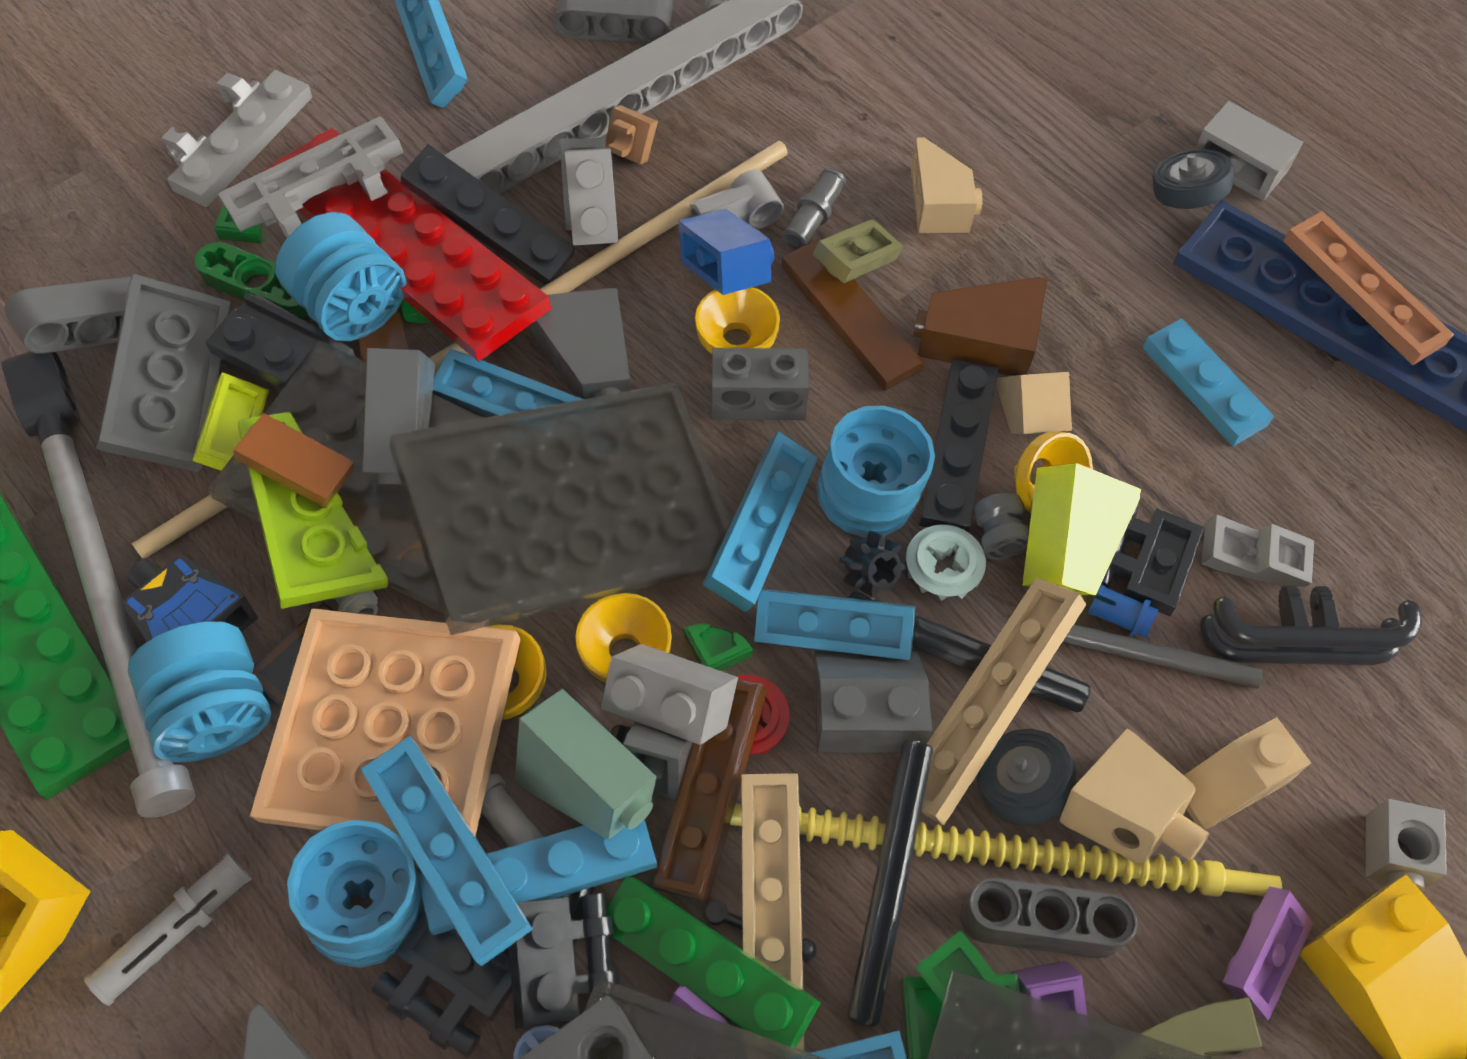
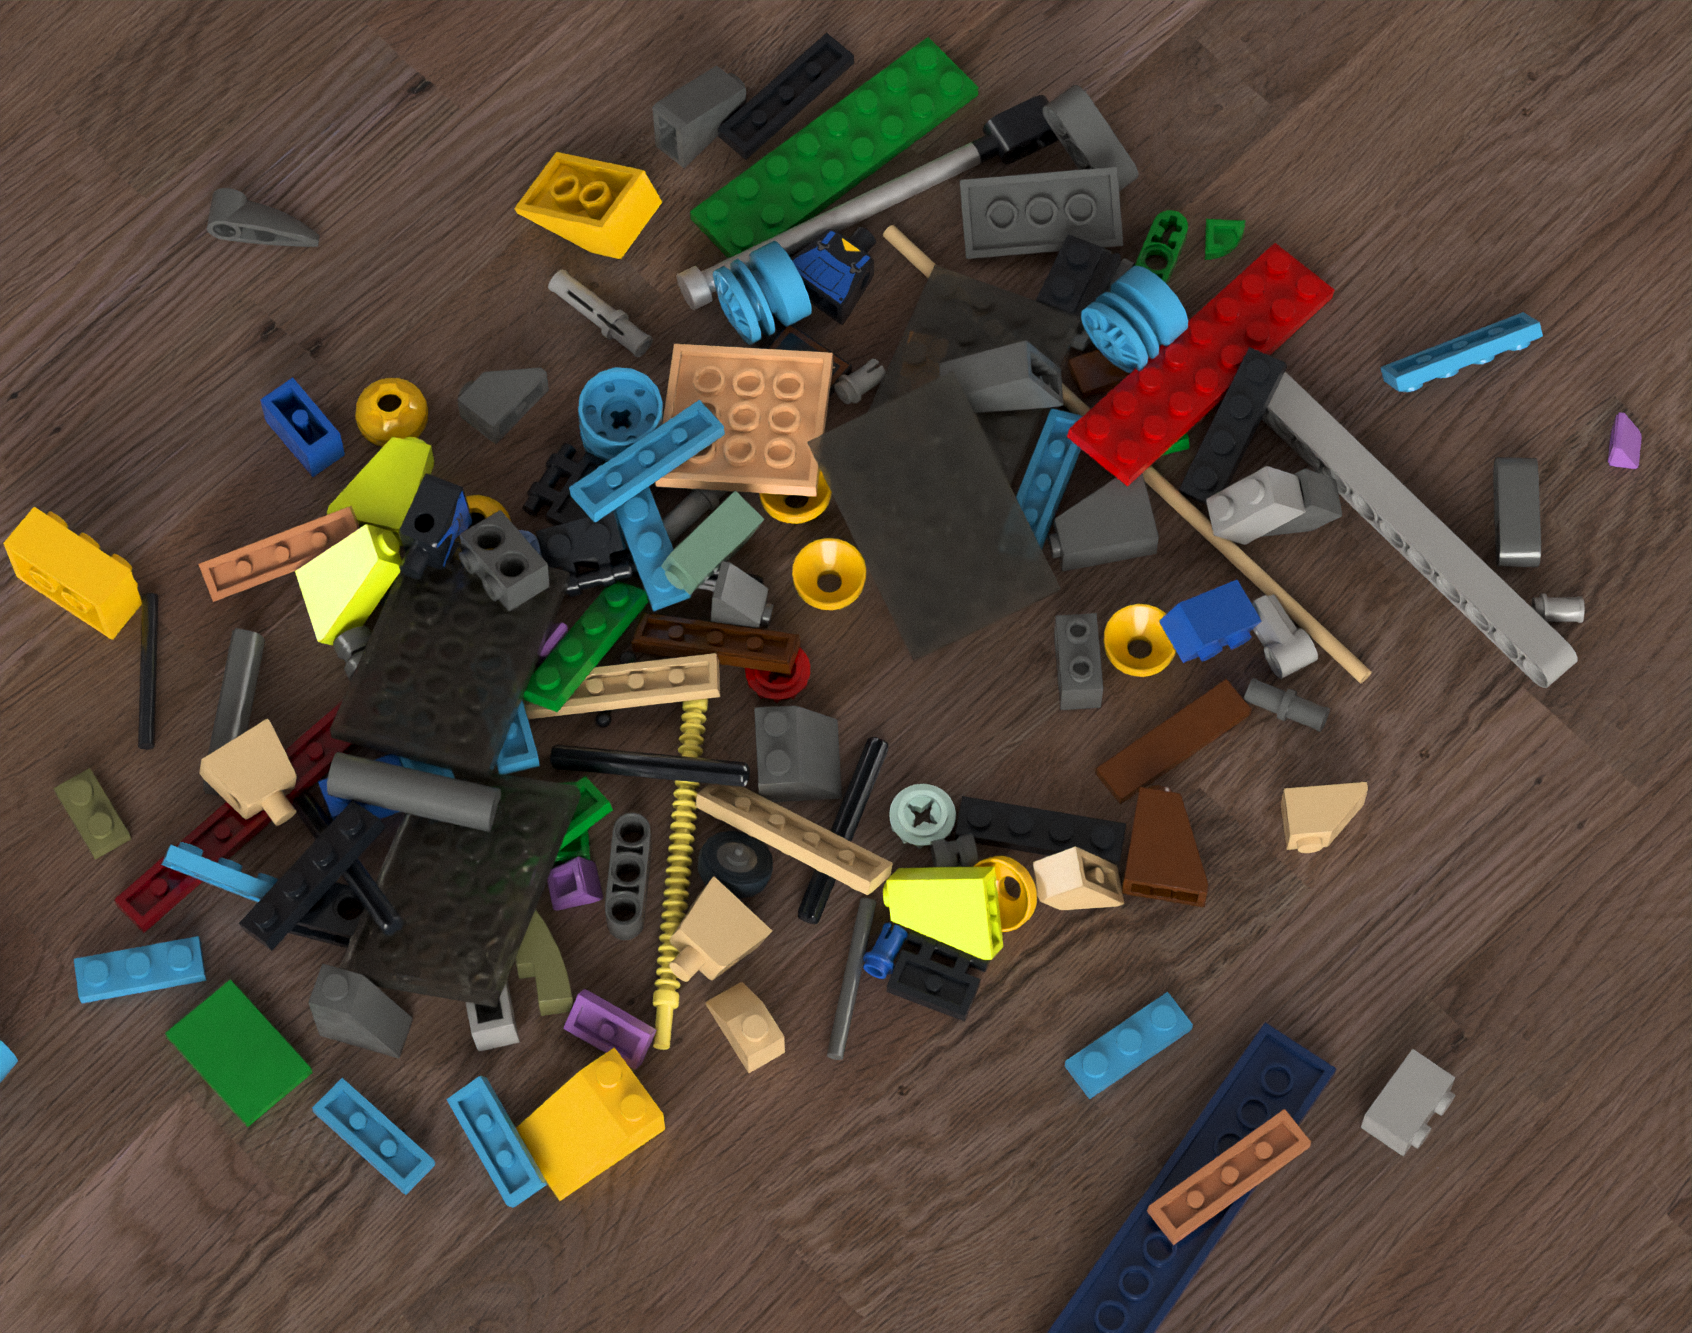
camera: 90 degrees right, 5 degrees up
(230, 402) = (1007, 269): neon yellow tile -> none
(257, 117) = (1292, 206): light grey hinge -> none
(285, 187) = (1267, 299): light grey hinge -> none
(293, 460) = (945, 314): dark orange tile -> none
(310, 547) = (902, 334): lime wing -> none
(630, 134) = (1350, 536): medium nougat tile -> none
(669, 693) = (771, 595): light grey brick -> none
(717, 646) = (835, 647): green tile -> none
(760, 522) = (942, 667): dark azure plate -> none
(835, 624) = (853, 725): dark azure plate -> none
(857, 250) = (1232, 738): olive plate -> none
(872, 563) = (910, 753): black gear -> none
(874, 470) = (987, 725): dark azure wheel -> none
(1193, 178) = (1360, 1045): black wheel -> none
(1261, 555) = (952, 1068): light grey slope -> none
(1304, 644) = (871, 1160): black piece -> none
(1416, 827) = (704, 1155): light grey brick -> none

